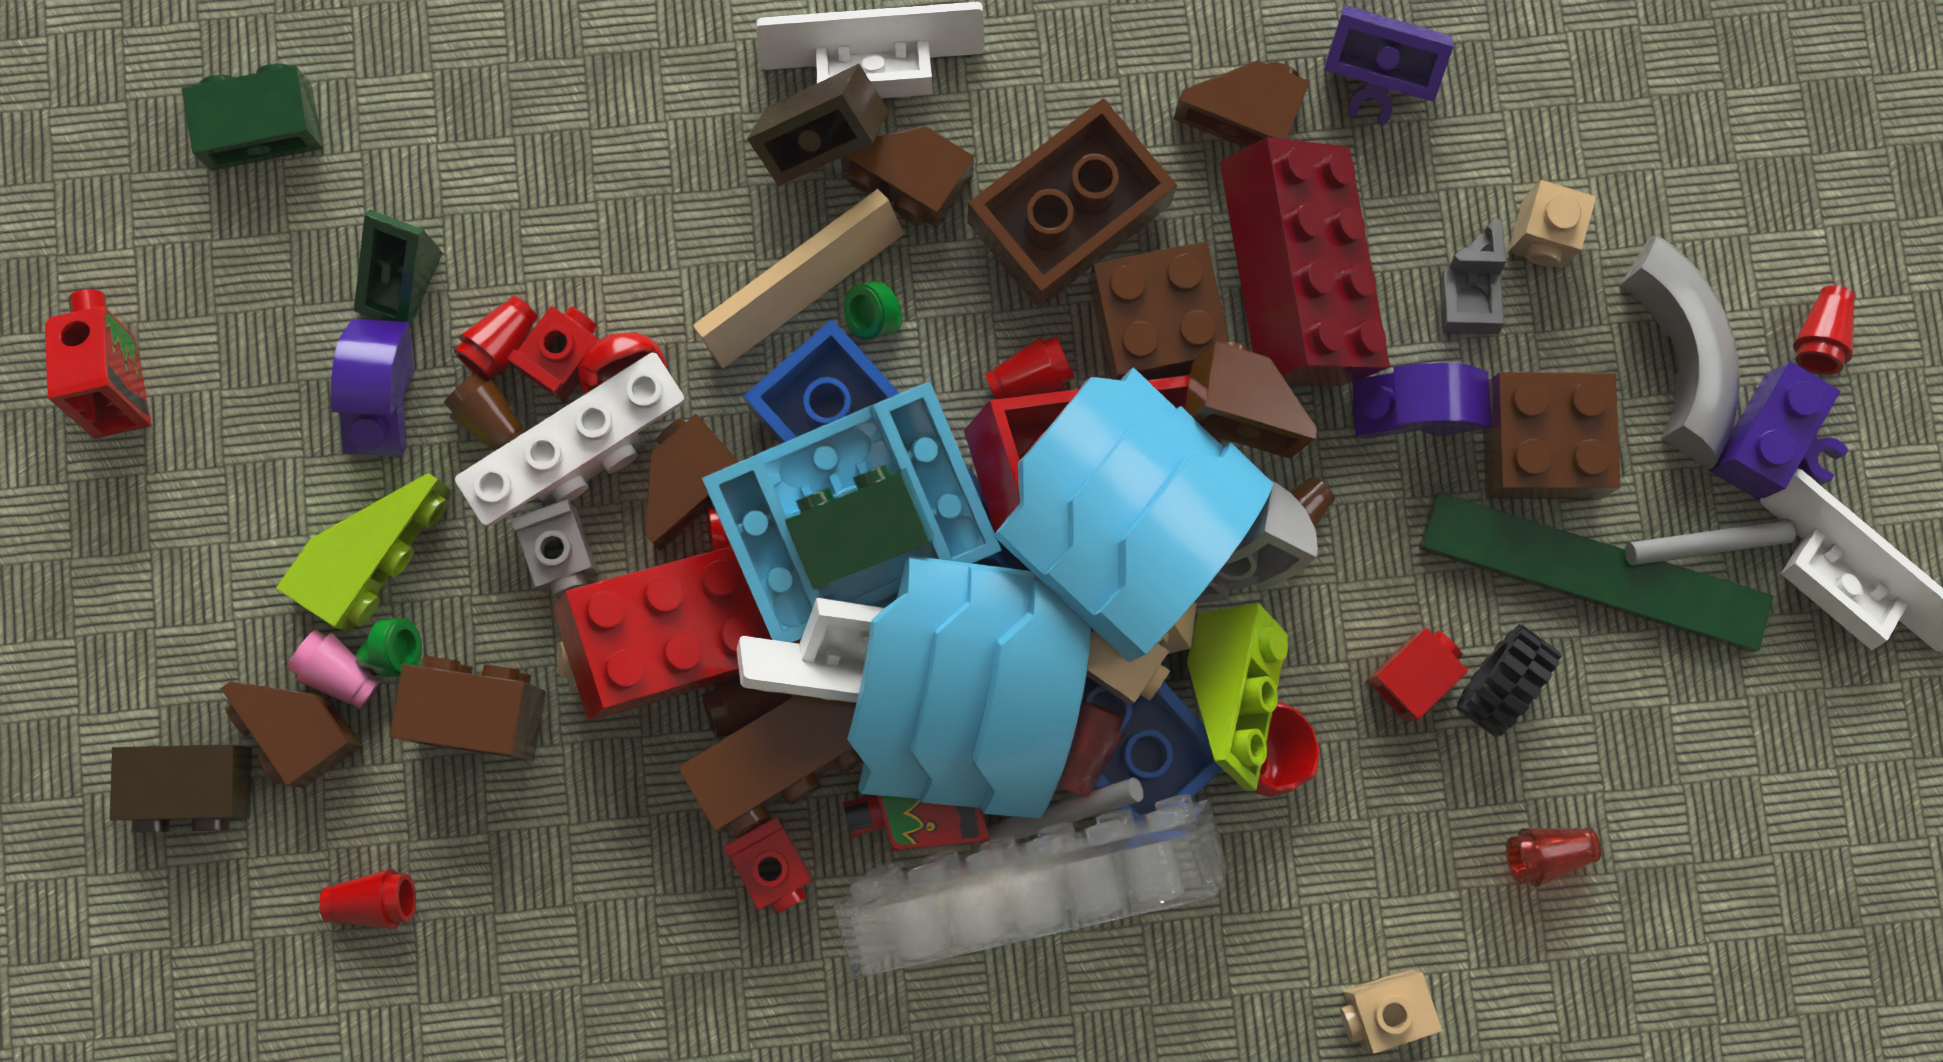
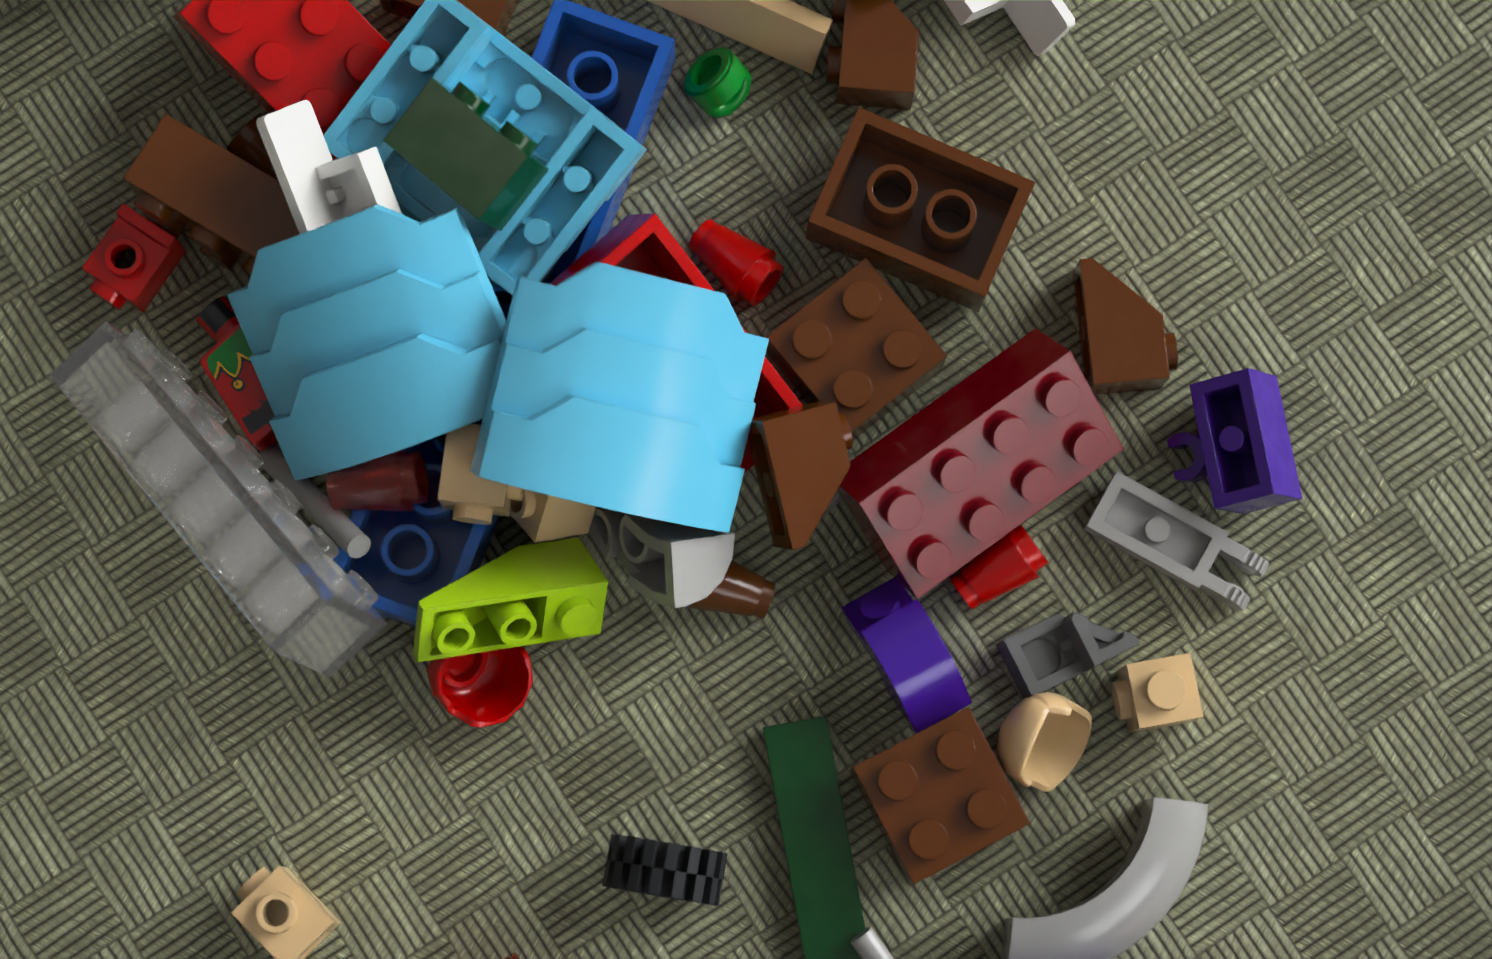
camera: 65 degrees right, 0 degrees up
(1393, 293) = (1000, 568): none -> red cone
(1418, 674) = (631, 783): red brick -> none
(1428, 154) = (1171, 539): none -> light grey hinge
(1542, 333) = (1043, 740): none -> tan hair

